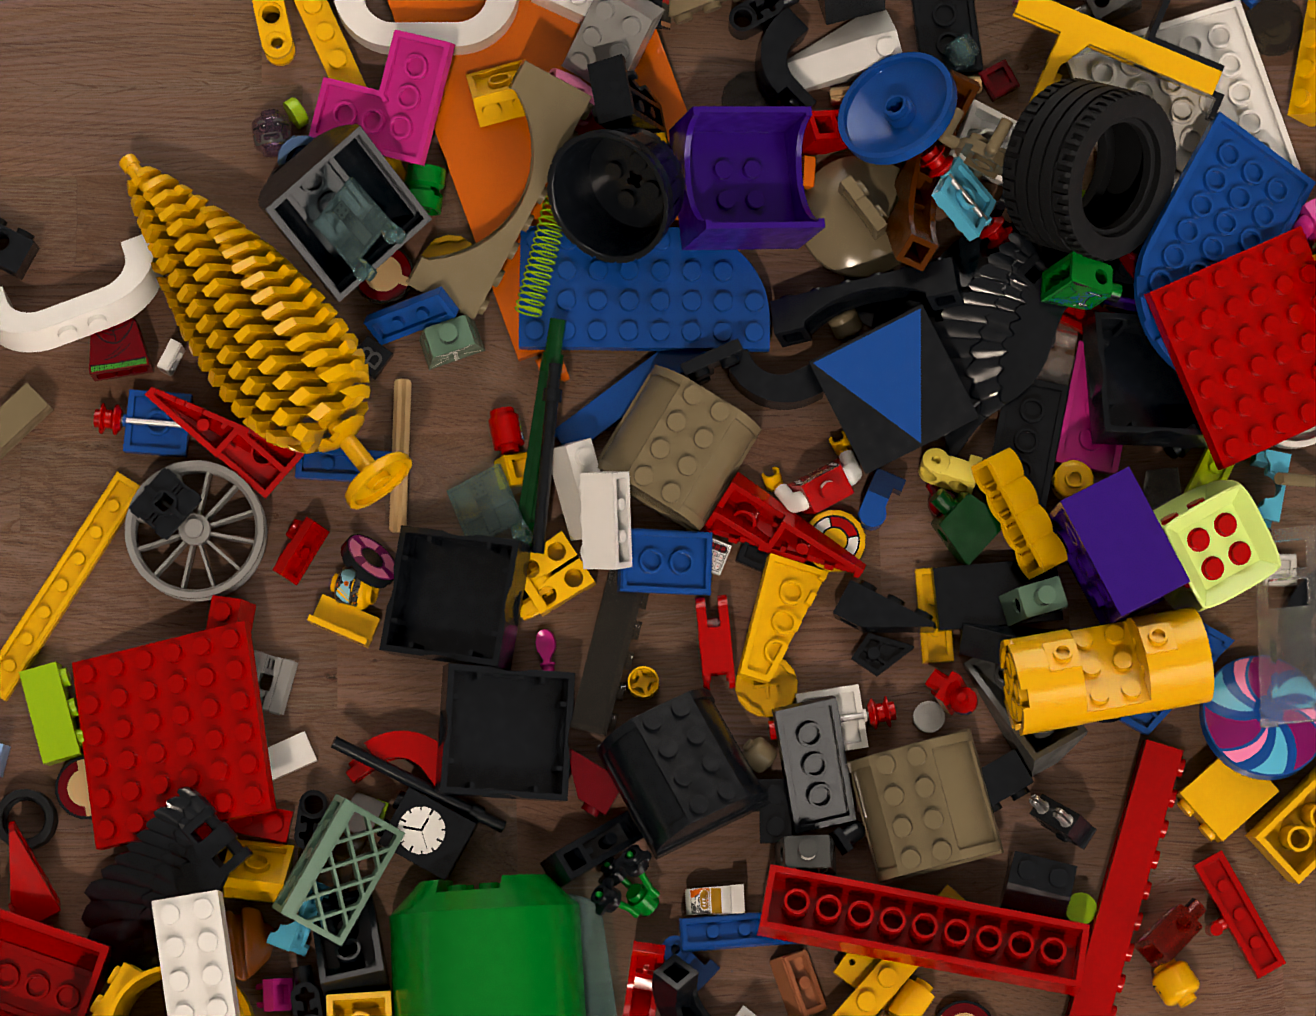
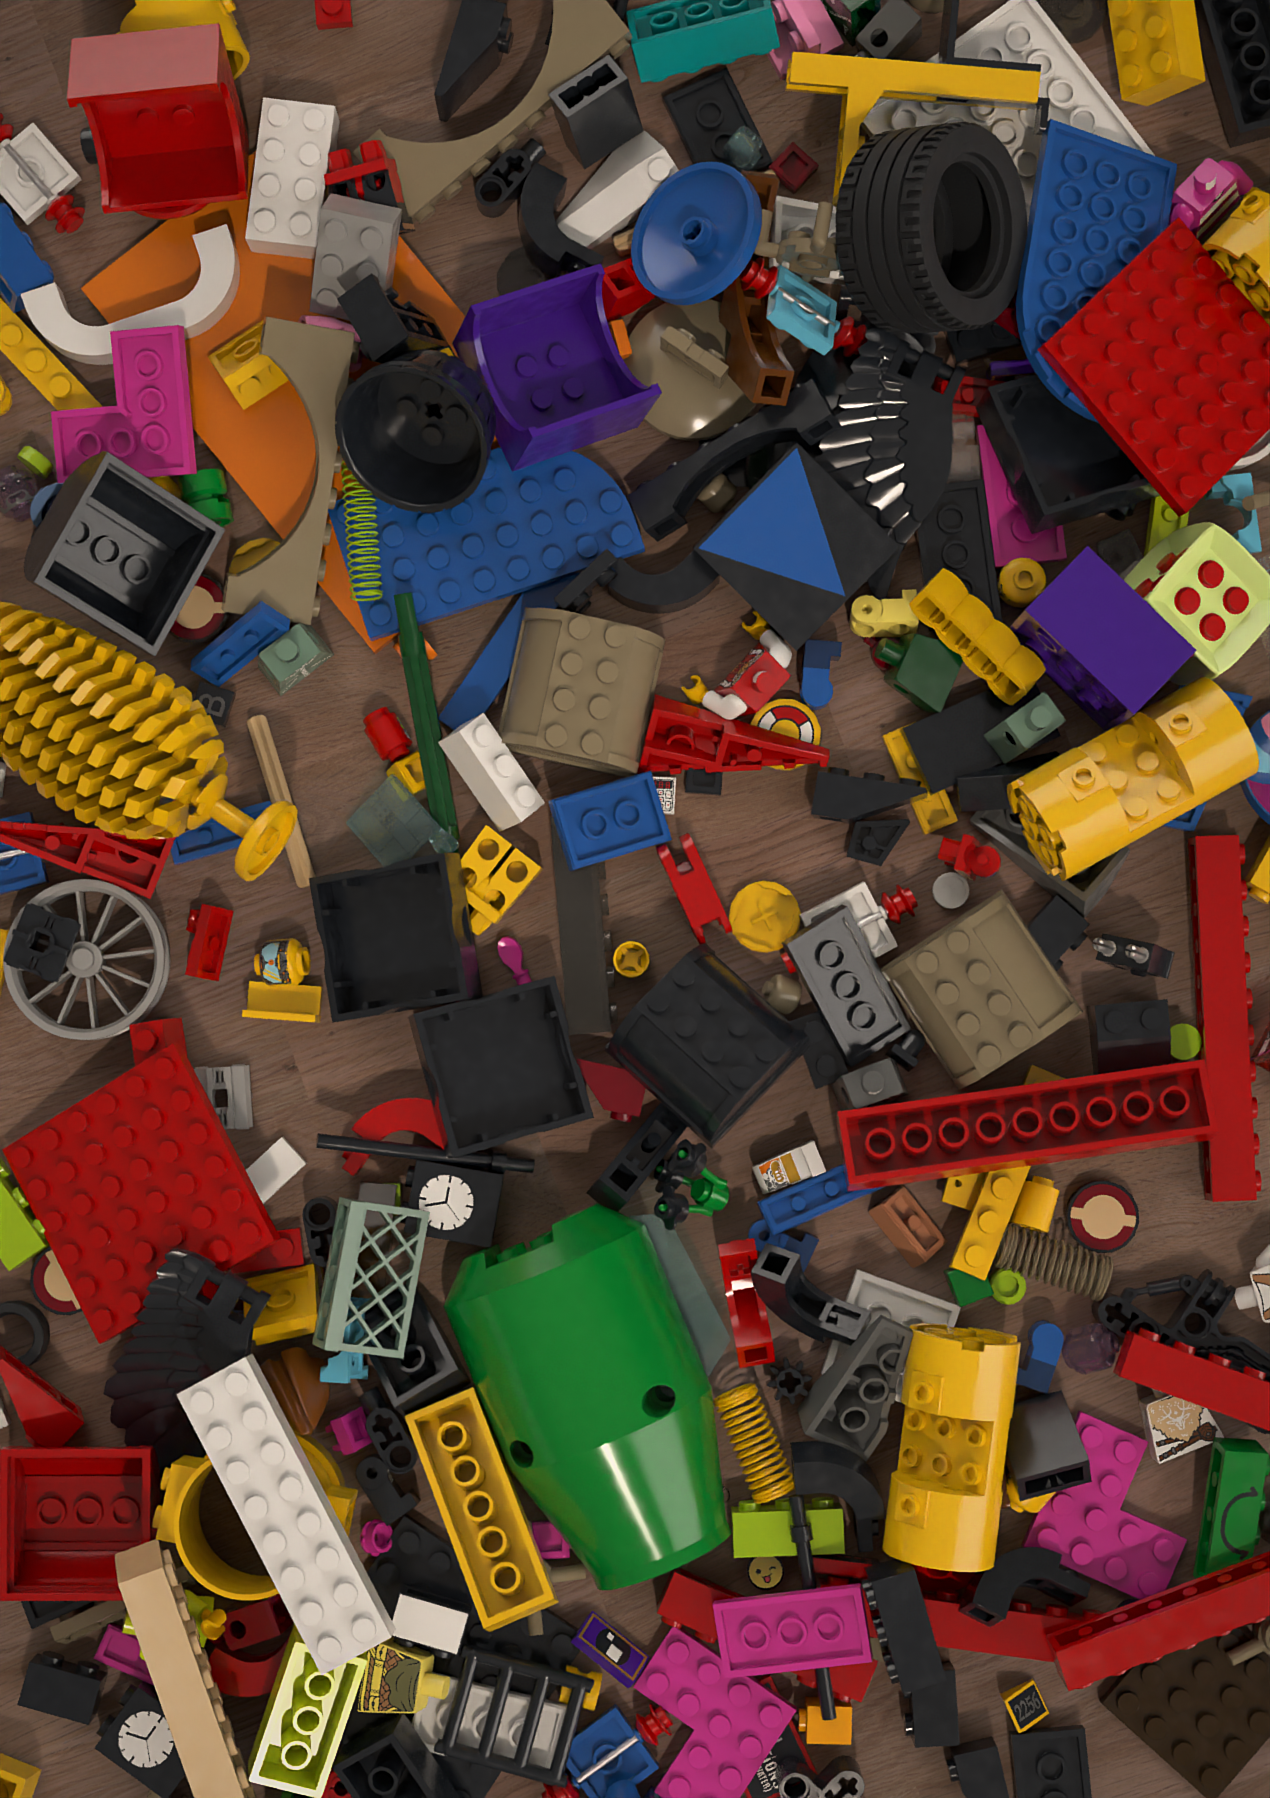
camera: 20 degrees left, 5 degrees up
(353, 225) = (141, 564): clear light blue flag -> none
(369, 559) = (287, 928): tile -> none
(552, 396) = (425, 681): black bar -> none
(605, 520) = (531, 798): white brick -> none
(780, 605) = (751, 826): yellow wing -> none
(1079, 283) = (961, 360): green torso -> none

